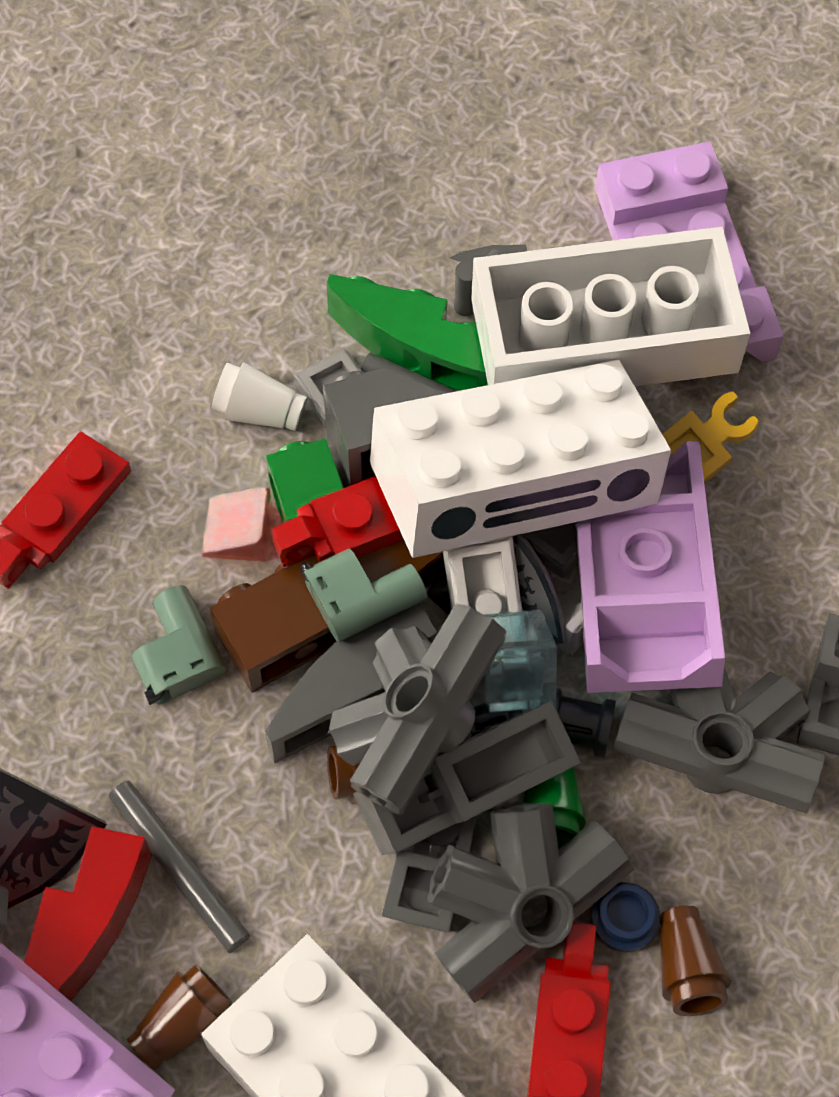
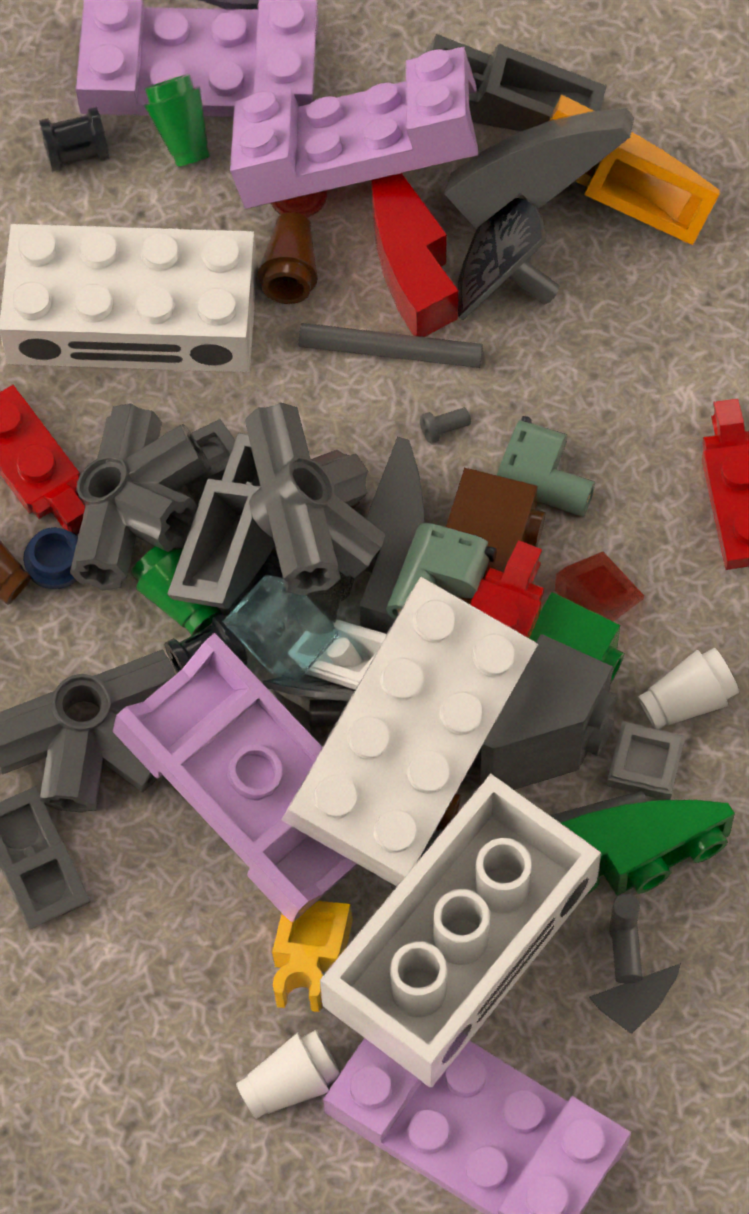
camera: 140 degrees right, 0 degrees up
(217, 761) = (437, 425): none -> dark grey piece
(785, 383) = (290, 1075): none -> white cone

